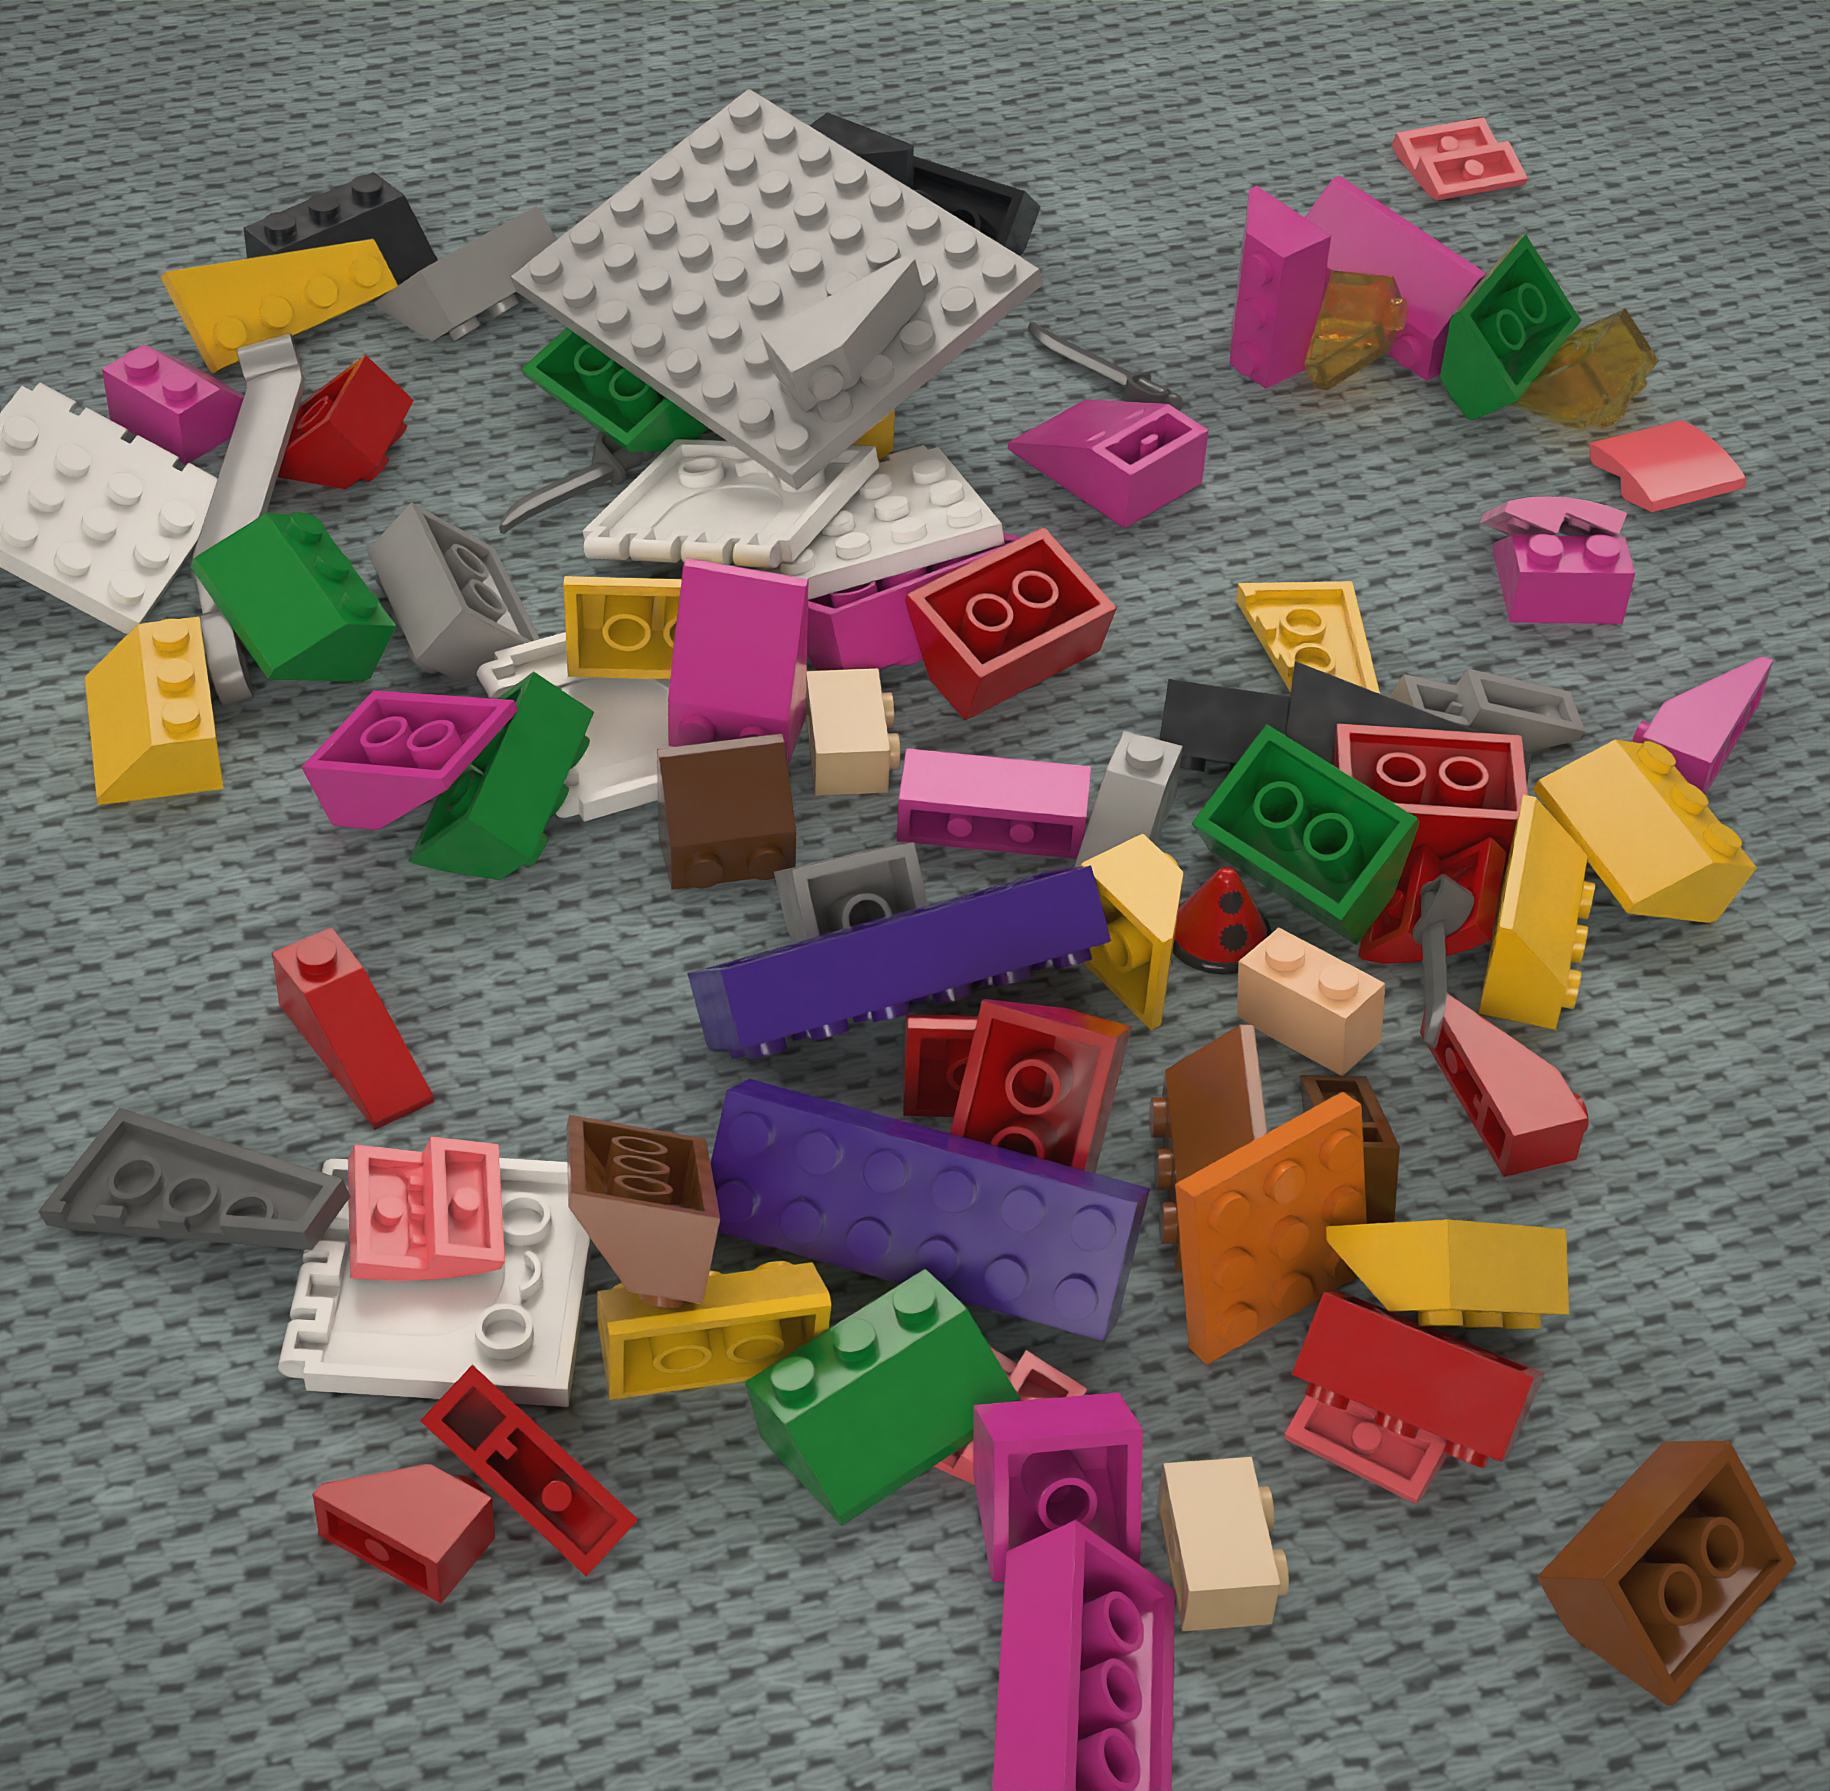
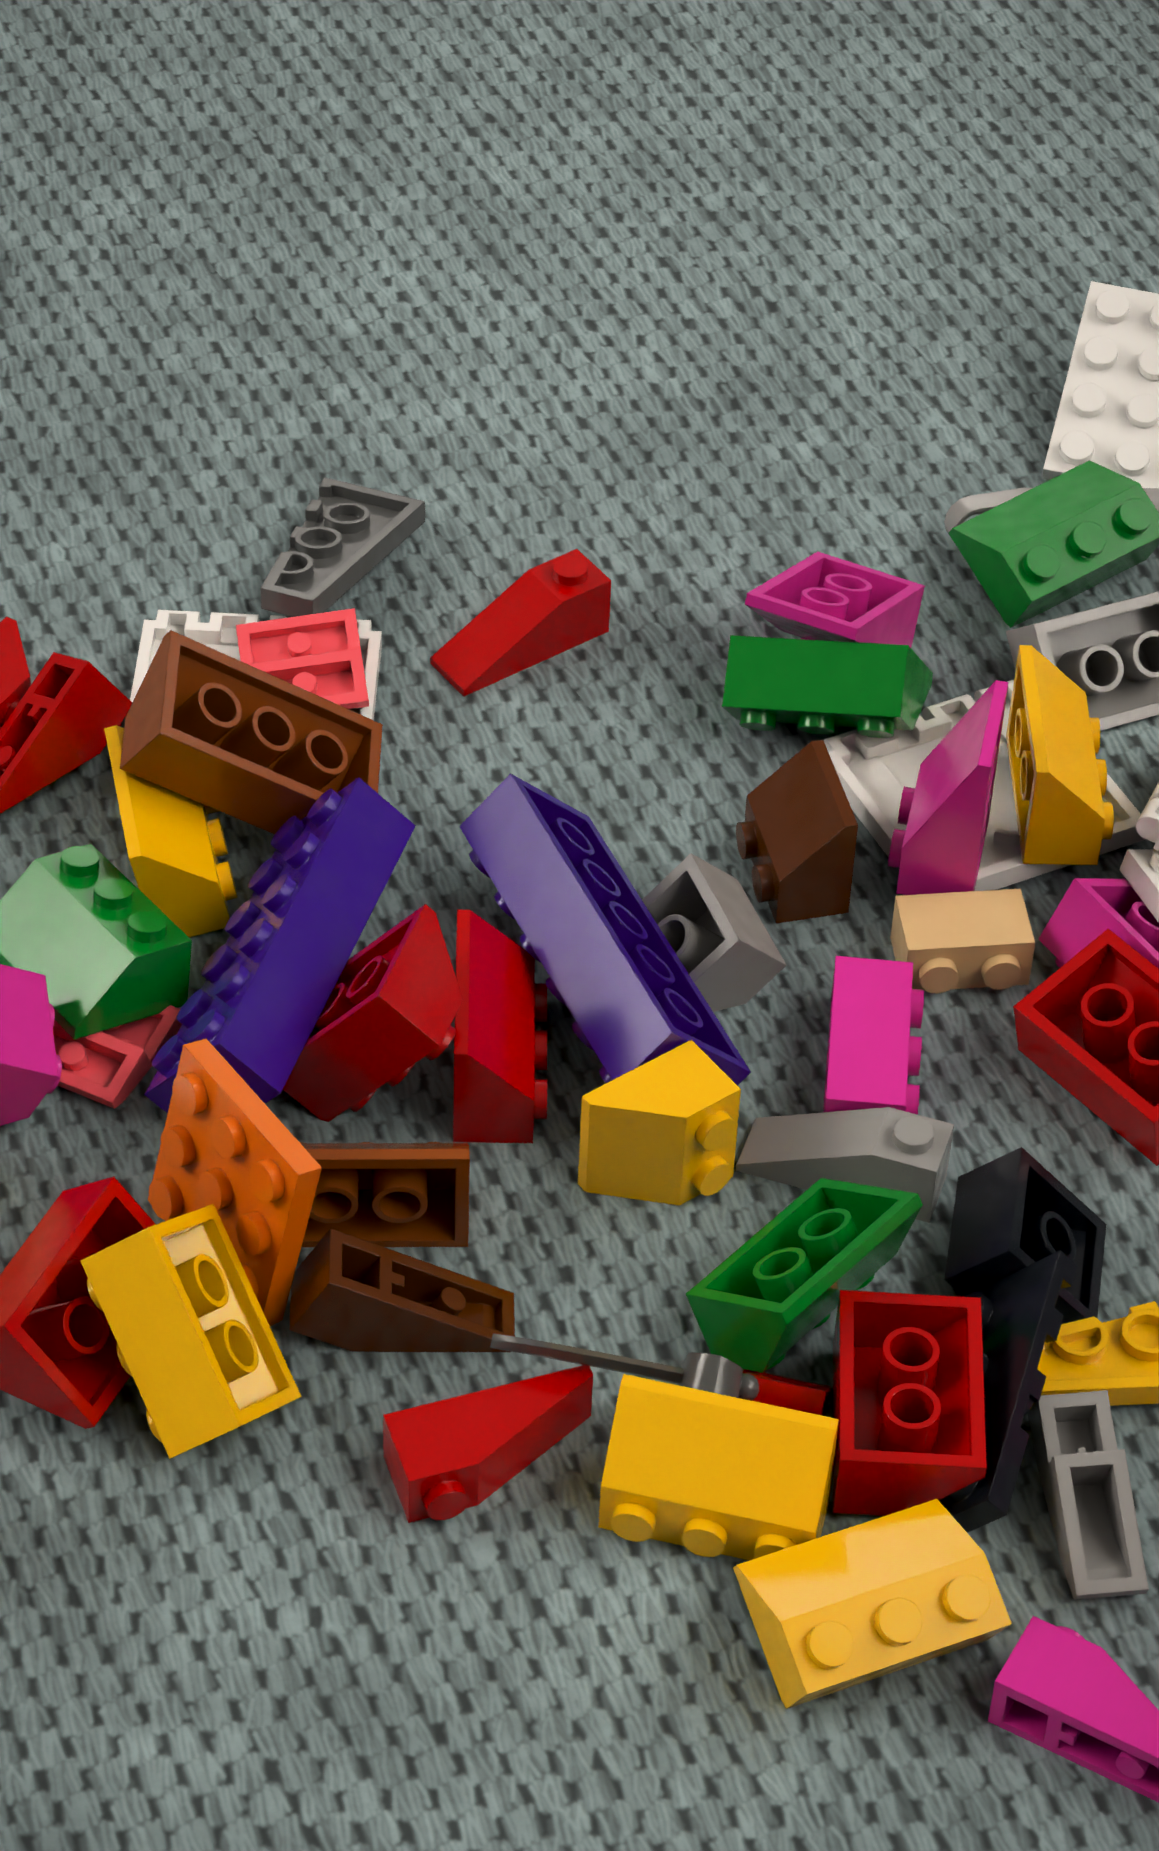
camera: 90 degrees right, 0 degrees up
(153, 715) = (906, 491): yellow slope -> none
(1219, 925) = (708, 1229): red hat -> none
(1310, 1001) = (587, 1277): light nougat brick -> none

